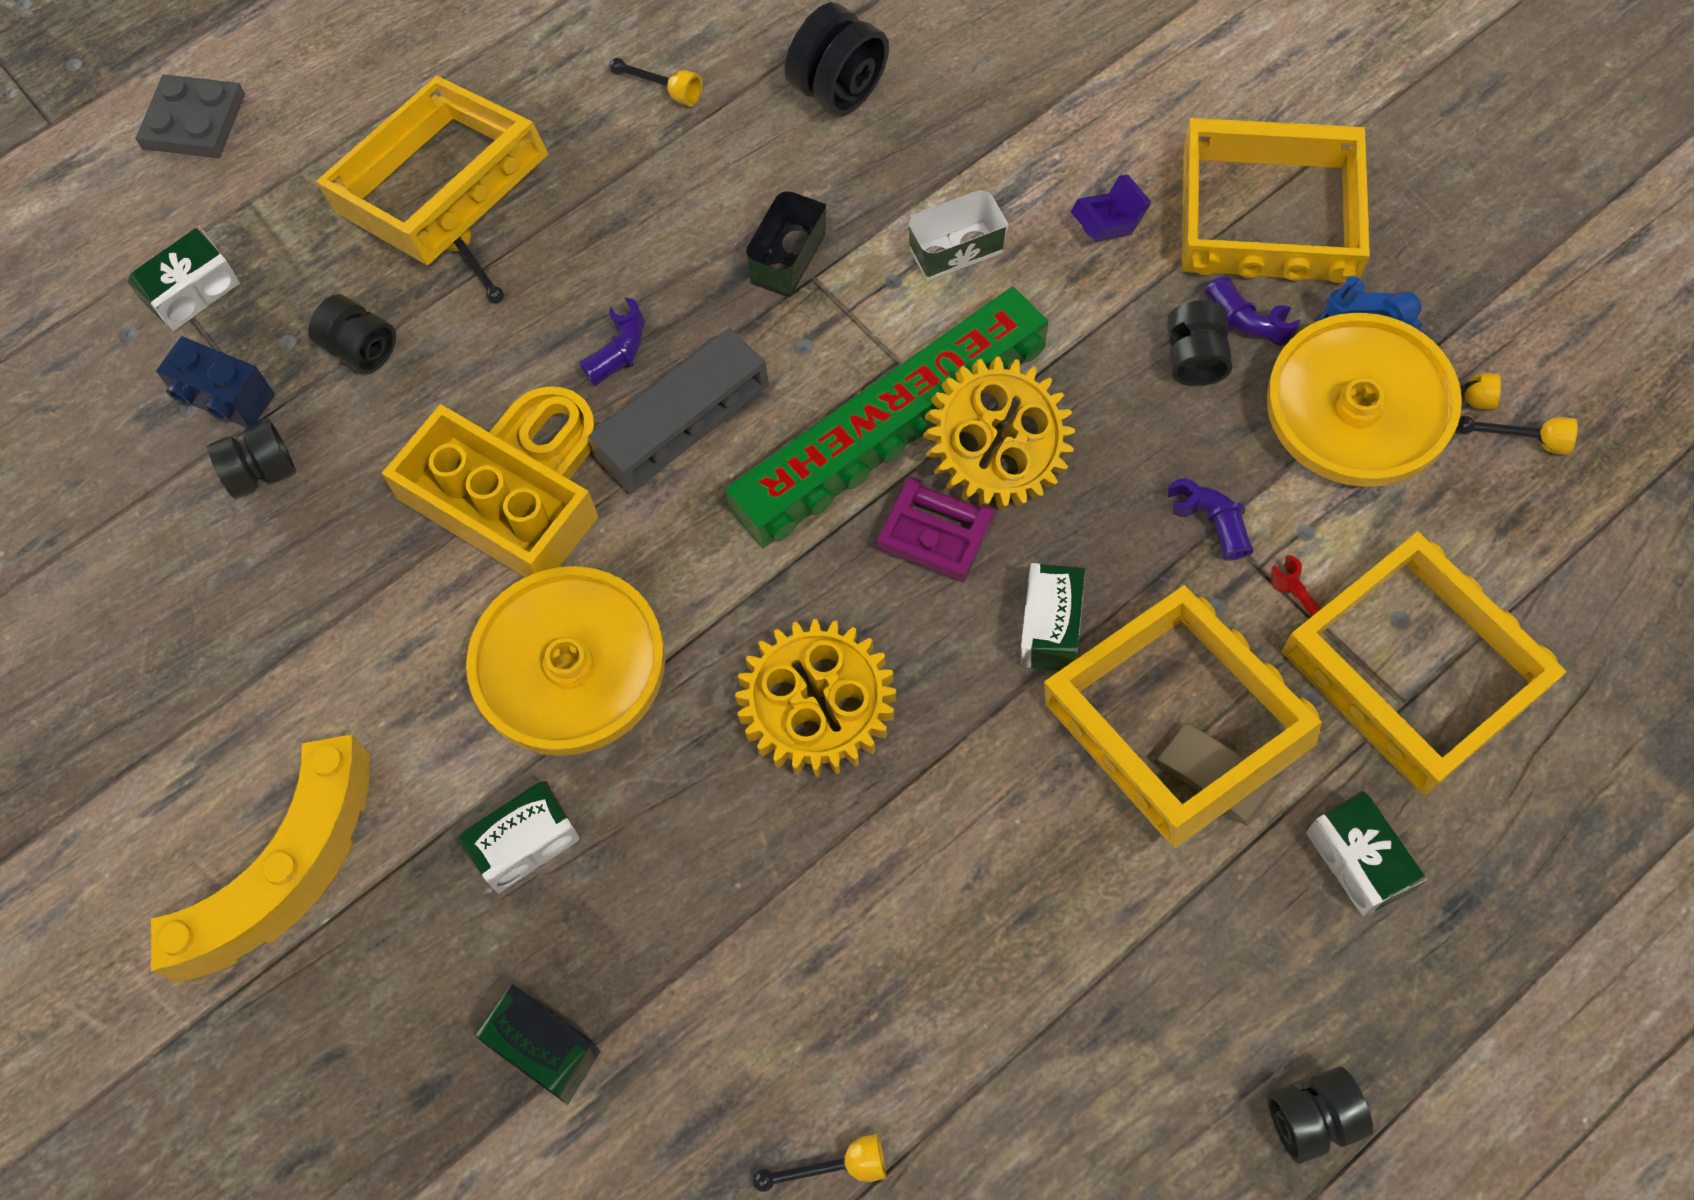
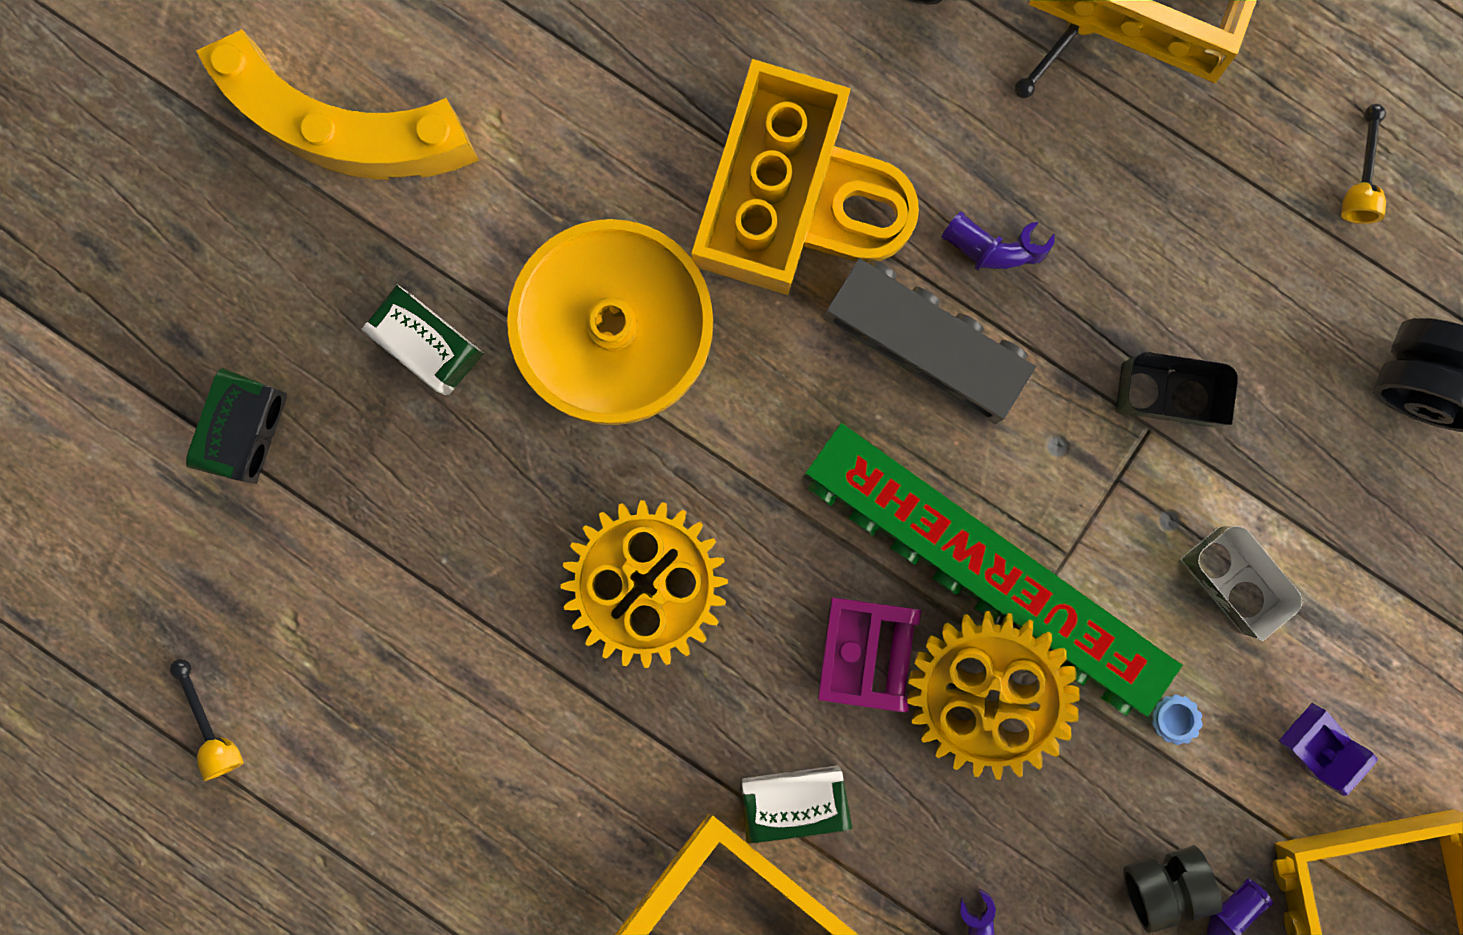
camera: 70 degrees right, 20 degrees up
(1060, 310) = (1176, 719): none -> light blue piece

